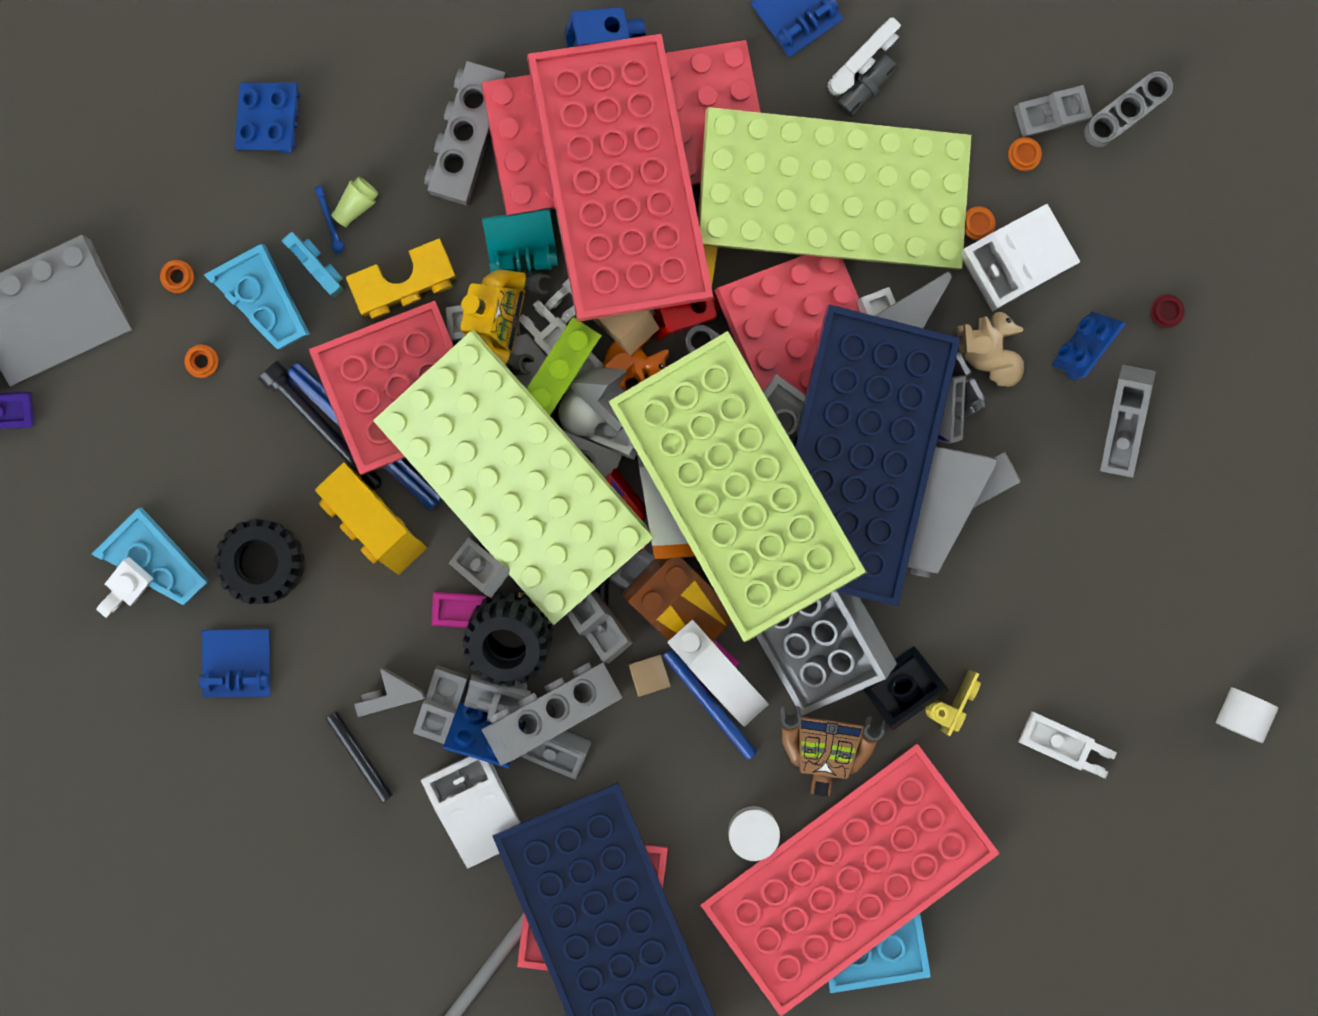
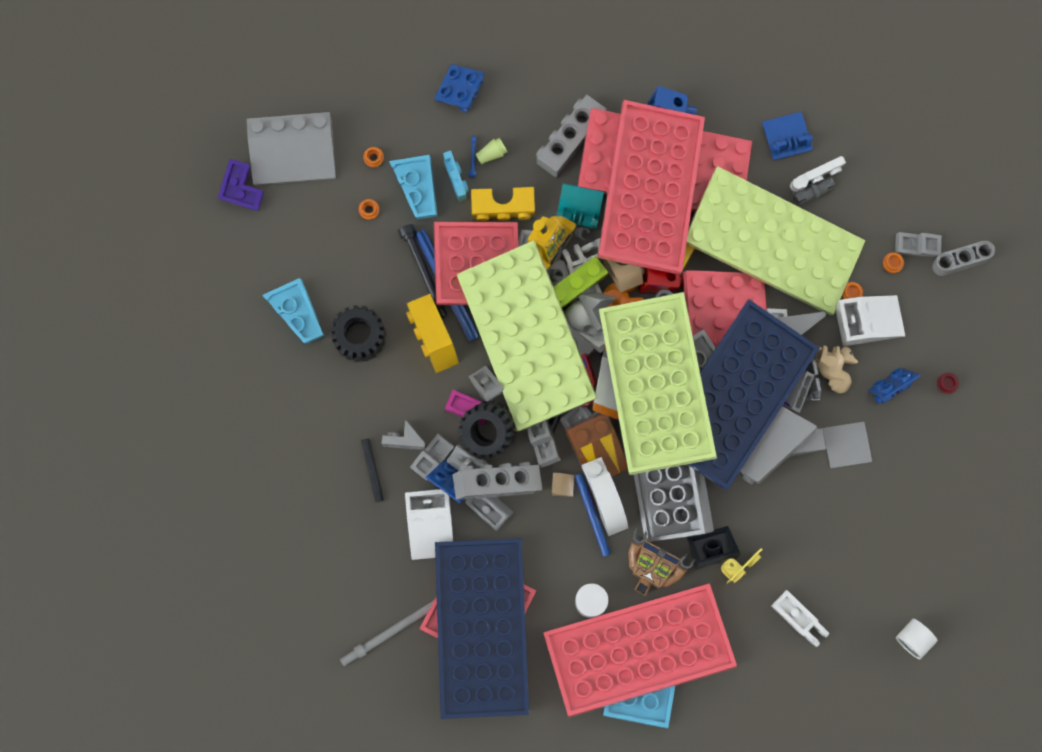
camera: 20 degrees right, 10 degrees down
(126, 584) = (276, 319): white plate -> none
(235, 663) = (321, 388): blue hinge -> none
(1049, 459) = (847, 445): none -> light grey piece
(1127, 421) = (902, 437): light grey slope -> none

